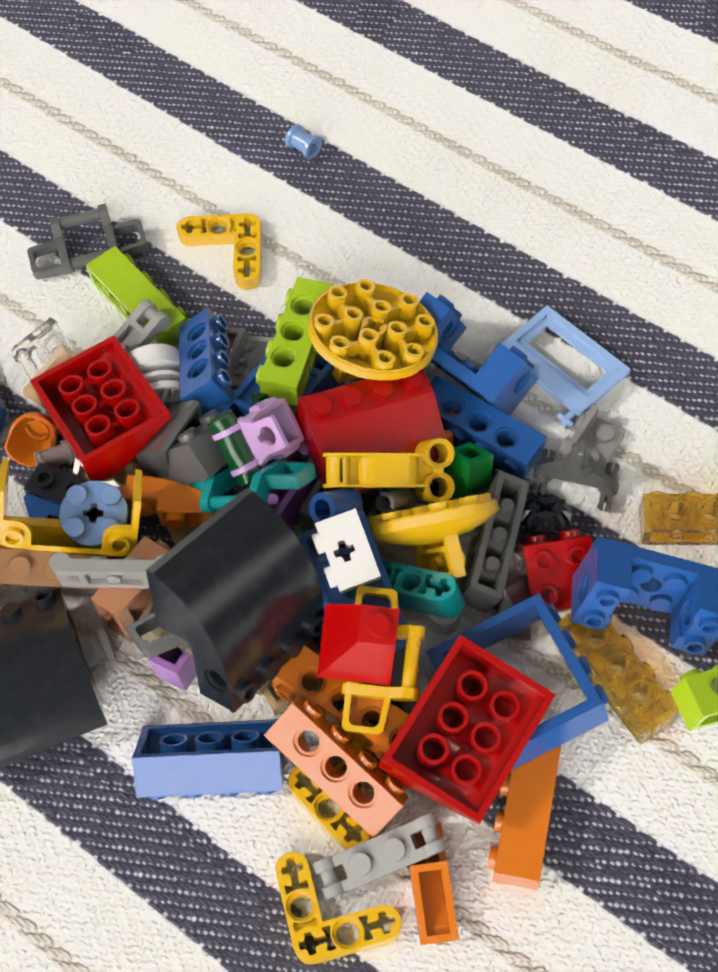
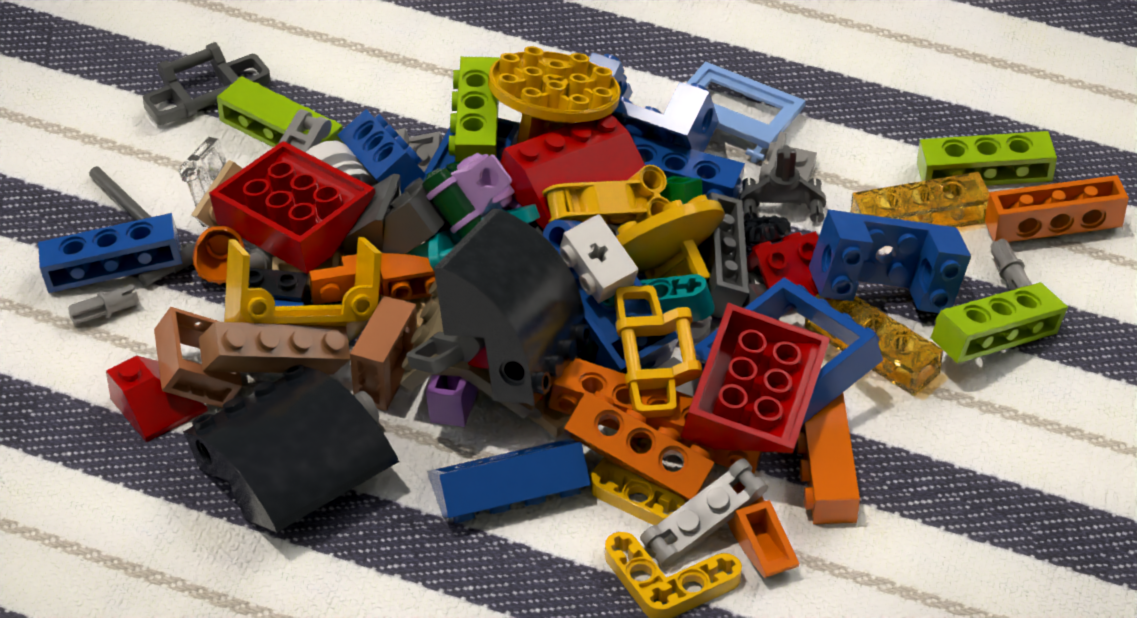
camera: 20 degrees left, 15 degrees down
(82, 499) = (316, 274): medium blue plate -> none
(101, 571) = (371, 322): light grey plate -> none
(234, 234) = (312, 60): yellow beam -> none
(358, 643) = (634, 329): red slope -> none

